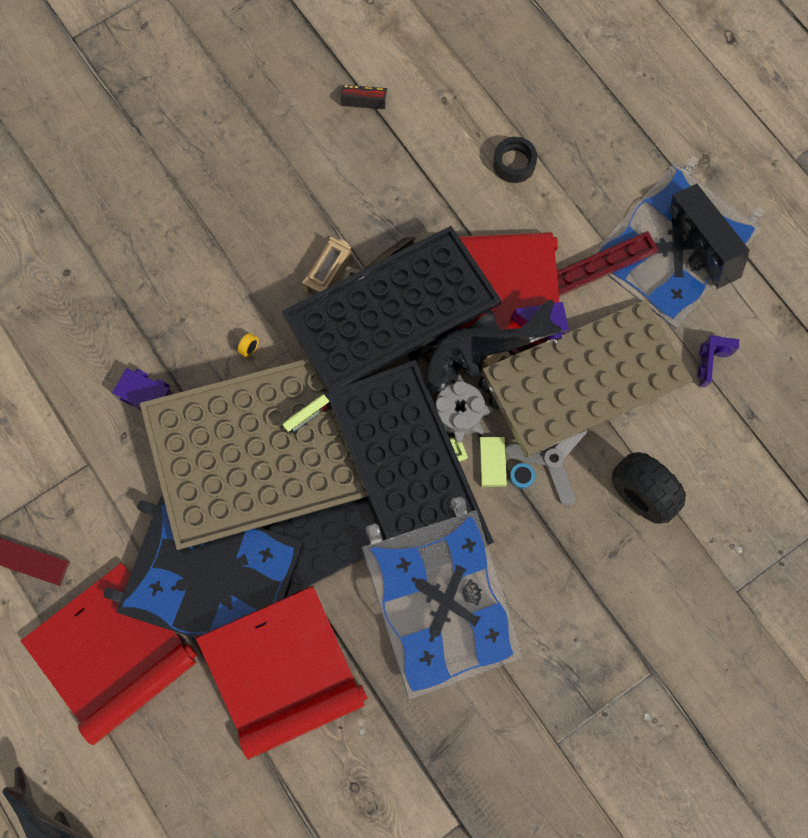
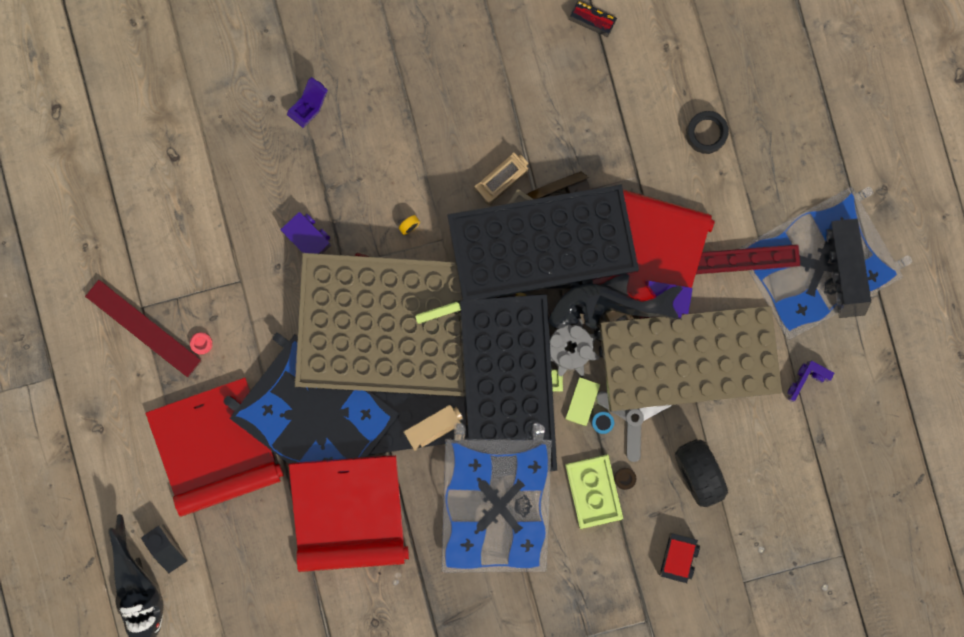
camera: 20 degrees right, 10 degrees up
(63, 543) = (201, 343): none -> coral tile
(84, 789) = (164, 548): none -> black slope
(107, 258) = (309, 104): none -> dark purple bracket
(343, 541) = (433, 427): none -> tan window
(540, 551) = (594, 491): none -> yellowish green tile
(568, 526) = (625, 478): none -> dark brown tile
(660, 589) = (679, 558): none -> brick

